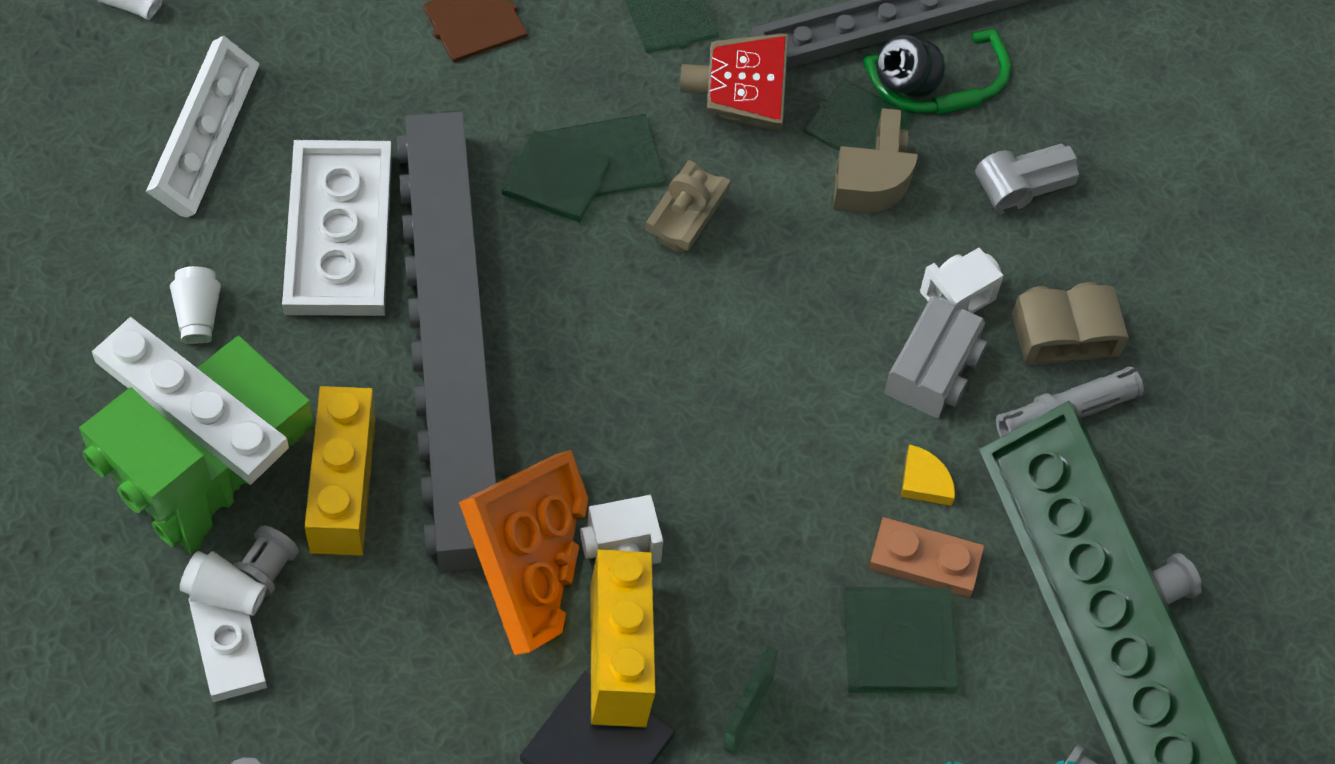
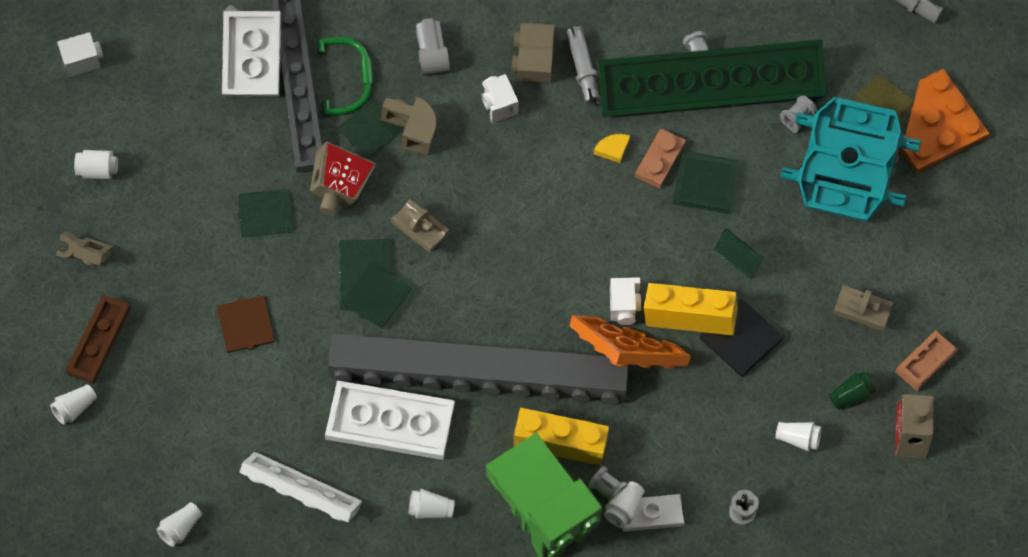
camera: 75 degrees left, 5 degrees up
(191, 400) = (527, 492): white plate -> none
(910, 66) = (337, 87): black piece -> none
(935, 357) = (544, 123): light grey brick -> none

